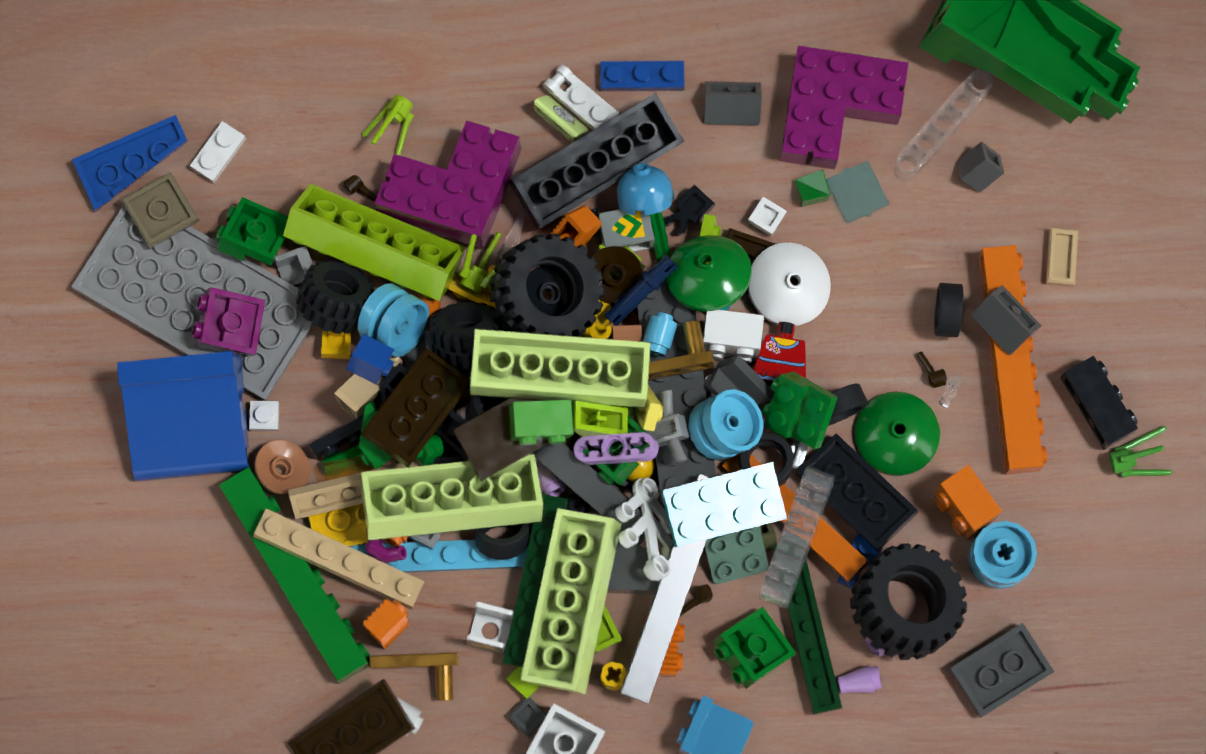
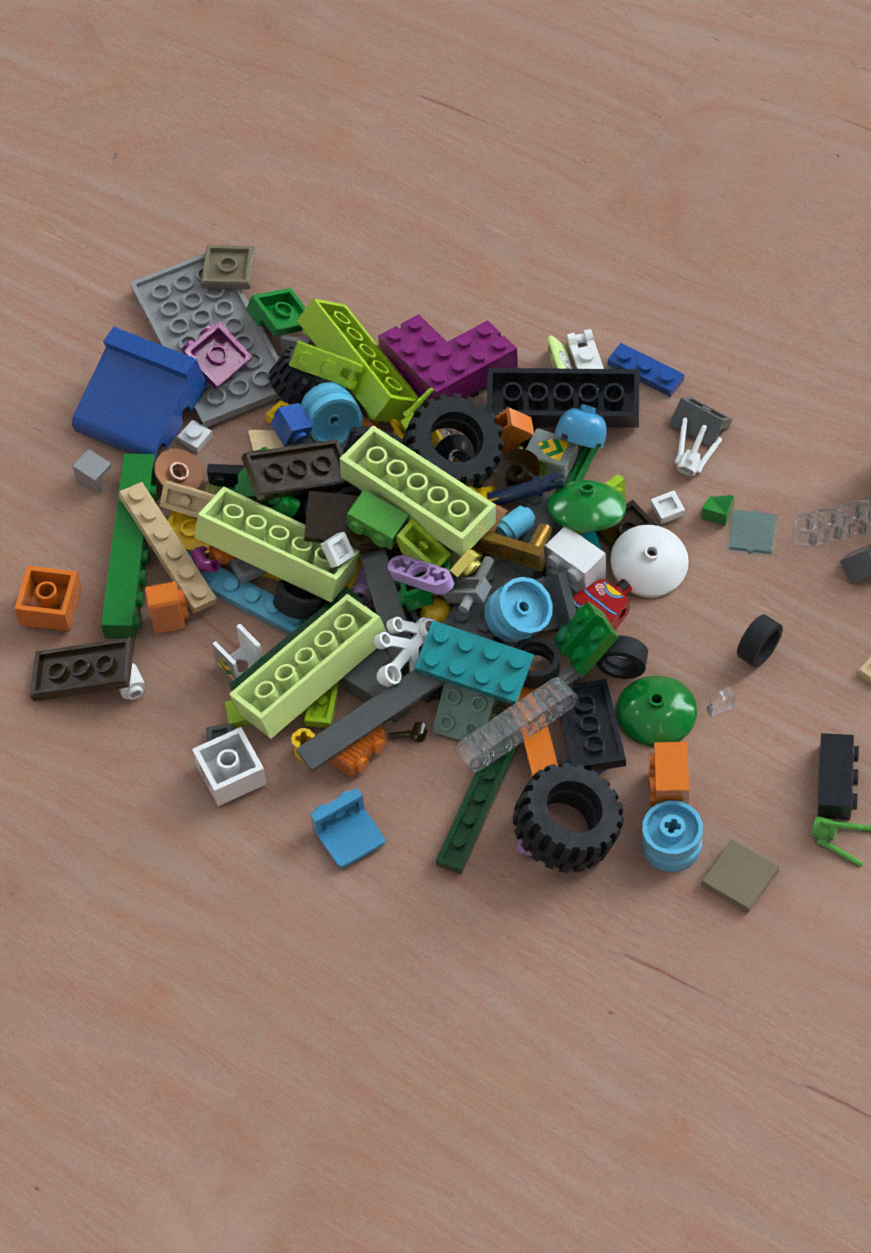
camera: 45 degrees right, 20 degrees down
(124, 161) = (234, 228): blue wing -> none
(196, 519) = (90, 469): none -> light grey panel
(218, 152) = (299, 258): white plate -> none
(262, 684) = (48, 598): none -> orange brick
(354, 184) = (377, 326): dark brown hand -> none
(361, 277) = (325, 364): none -> lime plate
(395, 111) = (445, 296): lime plant -> none
(442, 662) = (186, 659): pearl gold piece -> none
(523, 473) = (337, 549): none -> white plate
(693, 207) = (612, 467): black plate -> none
(753, 648) = (424, 787): green plate -> none
(756, 154) = (689, 462): none -> white plant
(832, 87) = (781, 447): magenta piece -> none
(861, 681) = (494, 862): lavender cone -> none
(936, 378) = (716, 685): dark brown hand -> none
(1001, 670) = (609, 921): dark grey plate -> none
(1005, 320) = (798, 666): dark grey panel -> none
(1014, 373) = (785, 708): orange brick -> none
(1079, 552) = (740, 876): none -> dark tan tile

